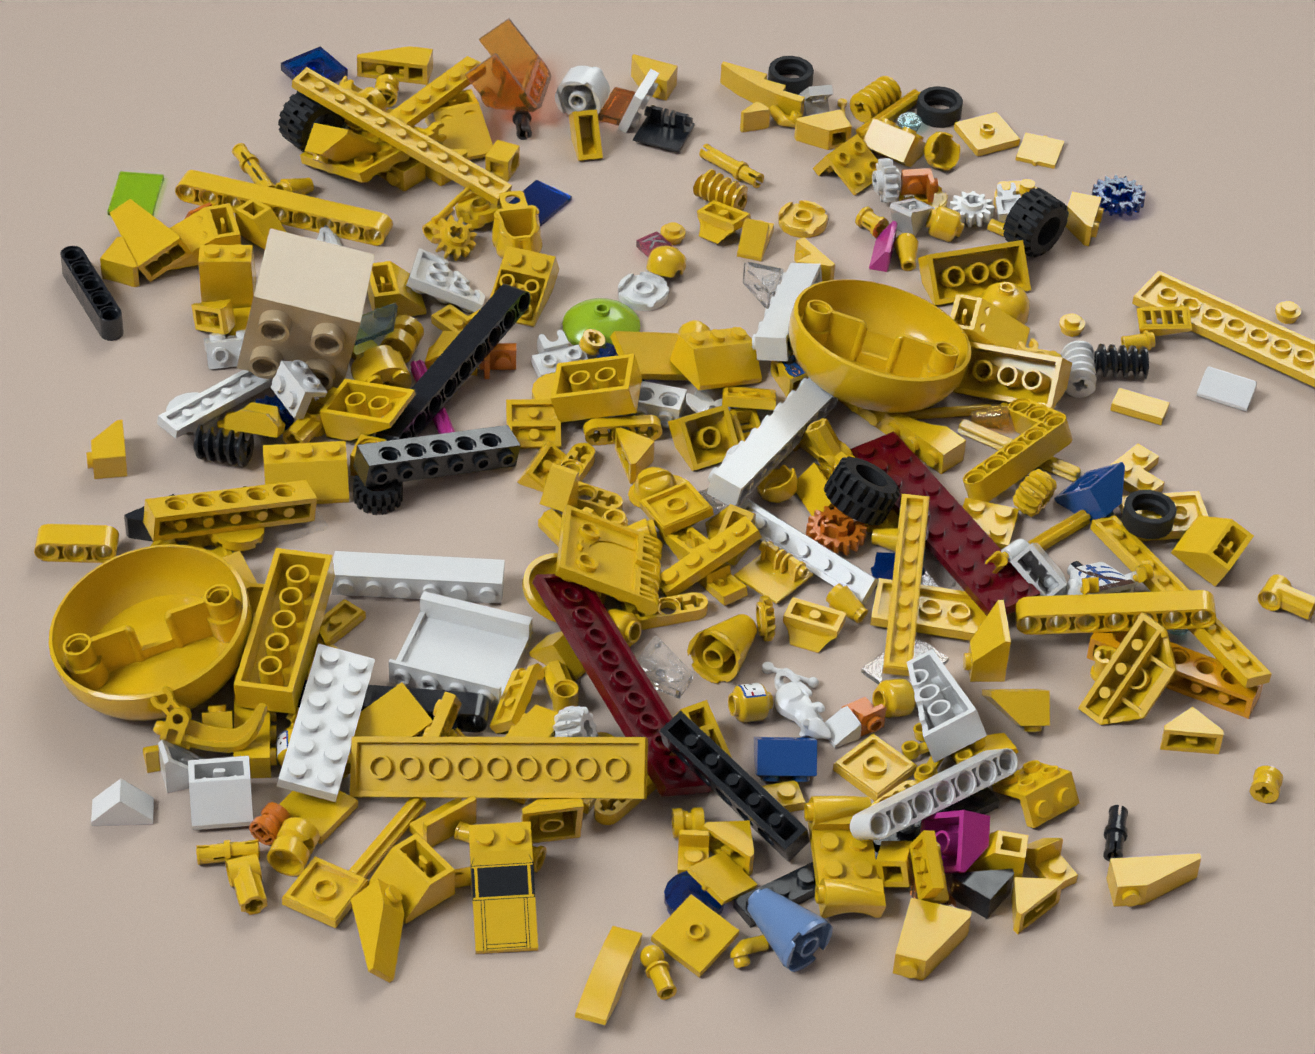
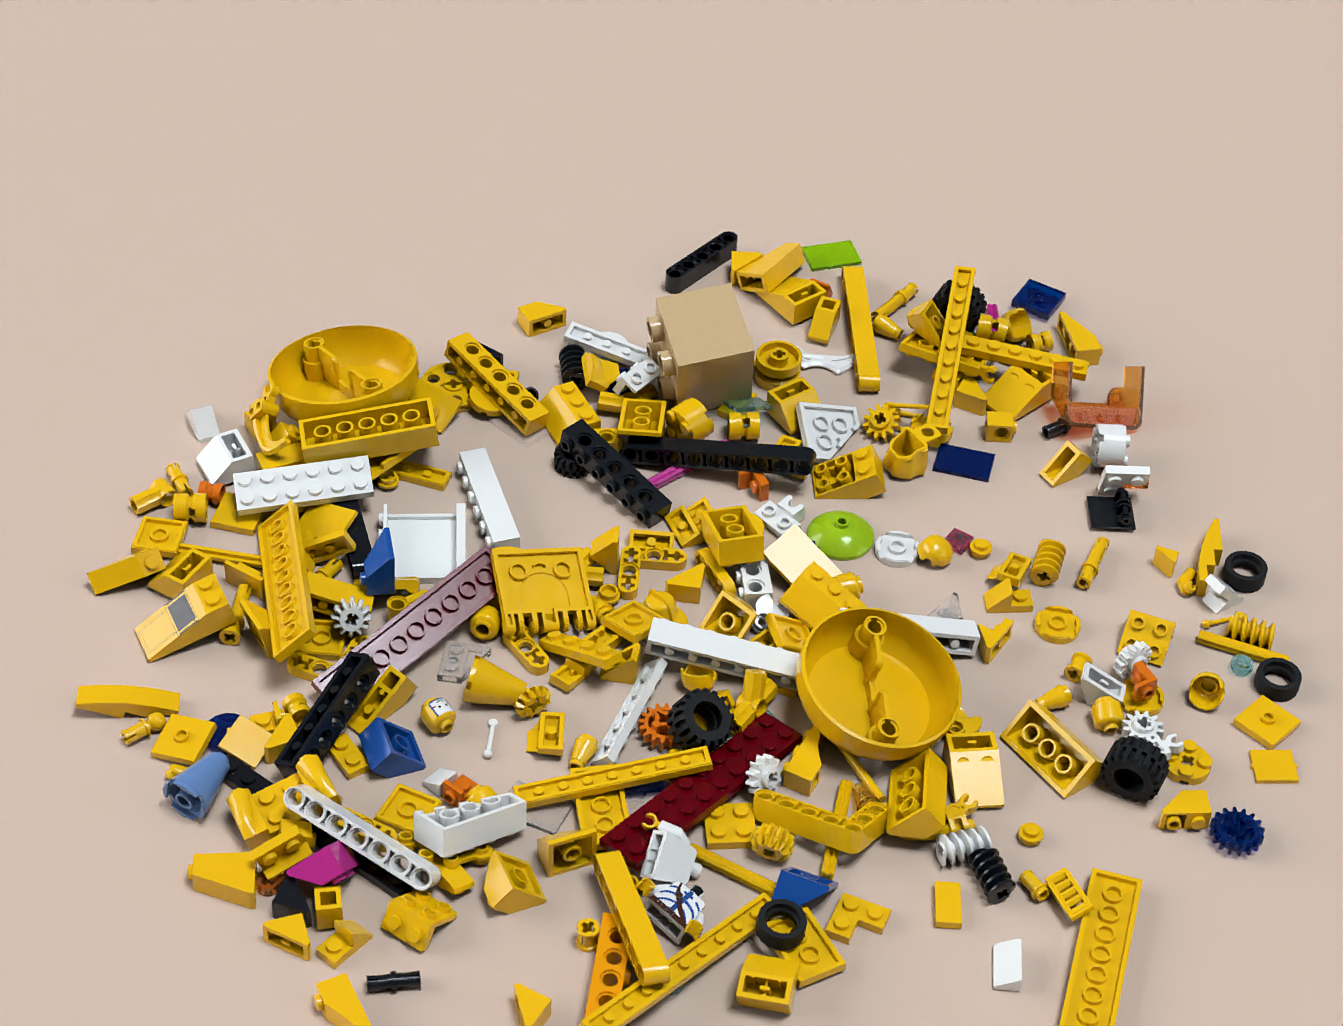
camera: 70 degrees right, 0 degrees up
(76, 543) = (439, 327): yellow beam -> none
(175, 765) = (242, 424): white slope -> none
(227, 274) = (755, 314): yellow slope -> none
(520, 672) = (380, 567): none -> blue slope
(592, 341) = (807, 522): yellow bush -> none
(666, 79) = (1174, 488): yellow slope -> none
(774, 572) = (598, 701): yellow hinge -> none
(794, 703) = (450, 744): white animal -> none
(823, 130) = (1184, 609): yellow slope -> none
(884, 248) = (1040, 685): dark pink slope -> none
(894, 142) = (1196, 653): slope -> none
(945, 471) = (764, 773): none -> white gear
(1009, 299) = (1023, 780): yellow cylinder -> none
(1132, 676) = (565, 944): yellow wedge -> none
(1287, 312) = (1155, 995): yellow plate -> none

